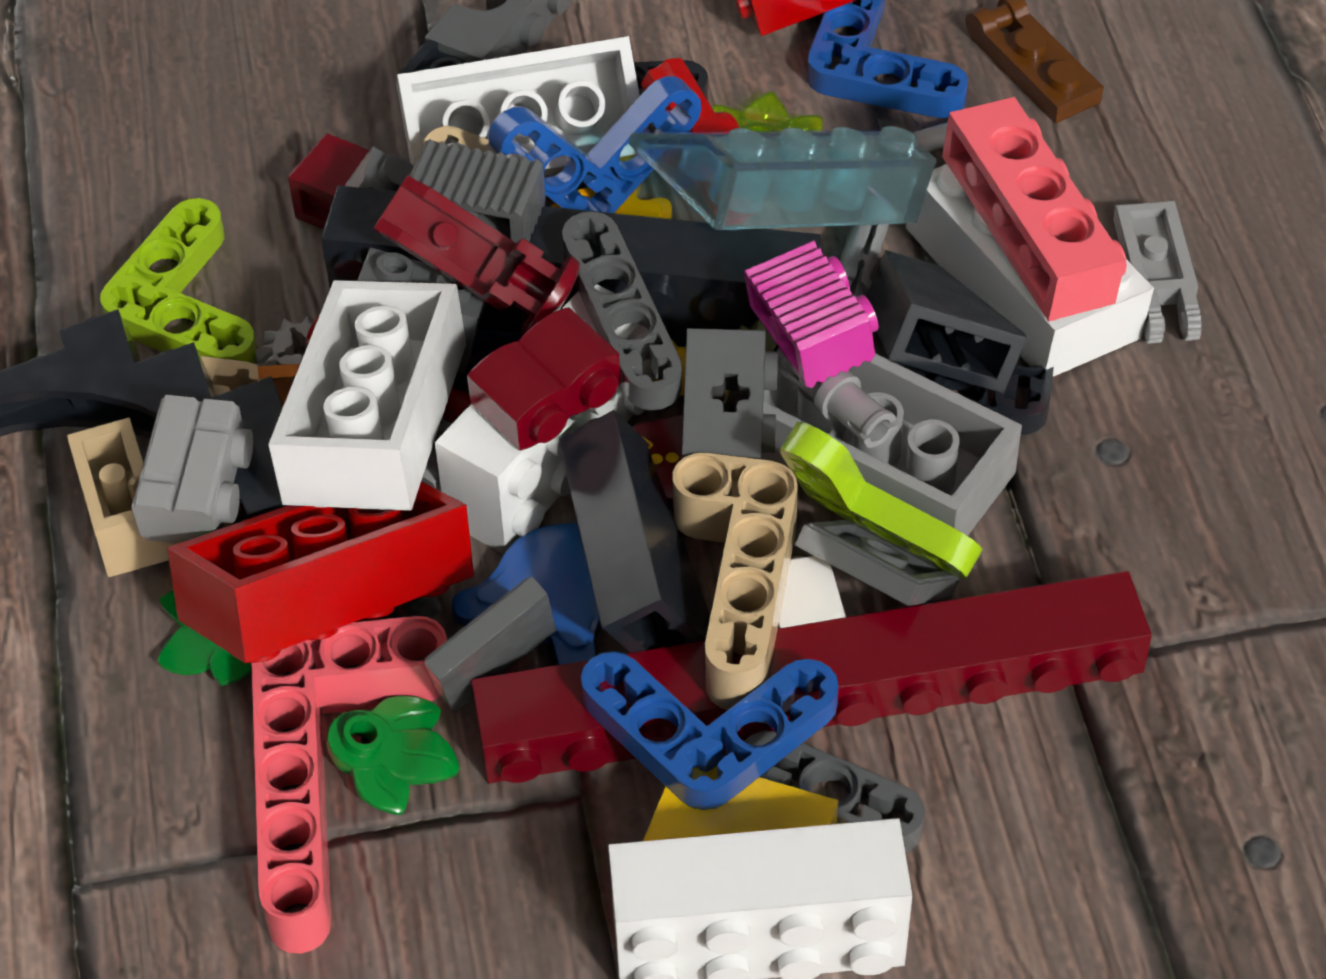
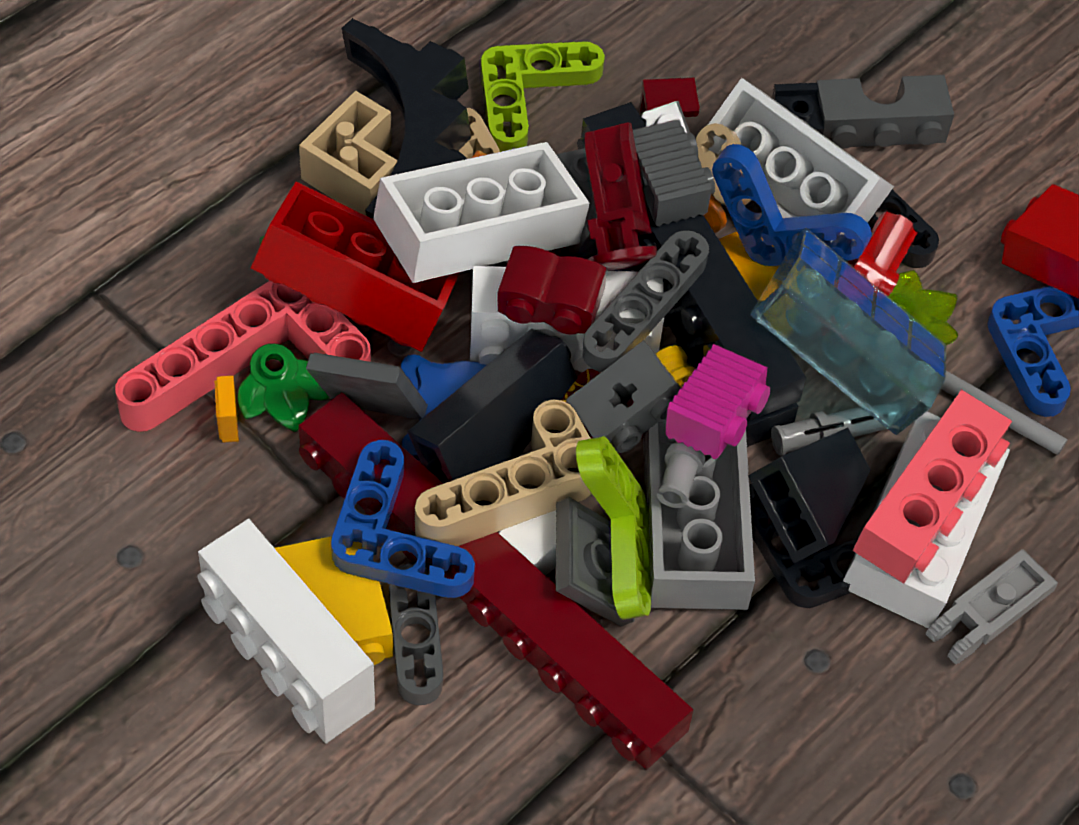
camera: 50 degrees right, 5 degrees up
(191, 469) = (355, 160): light grey brick -> none
(384, 819) = (226, 409): none -> light orange tile

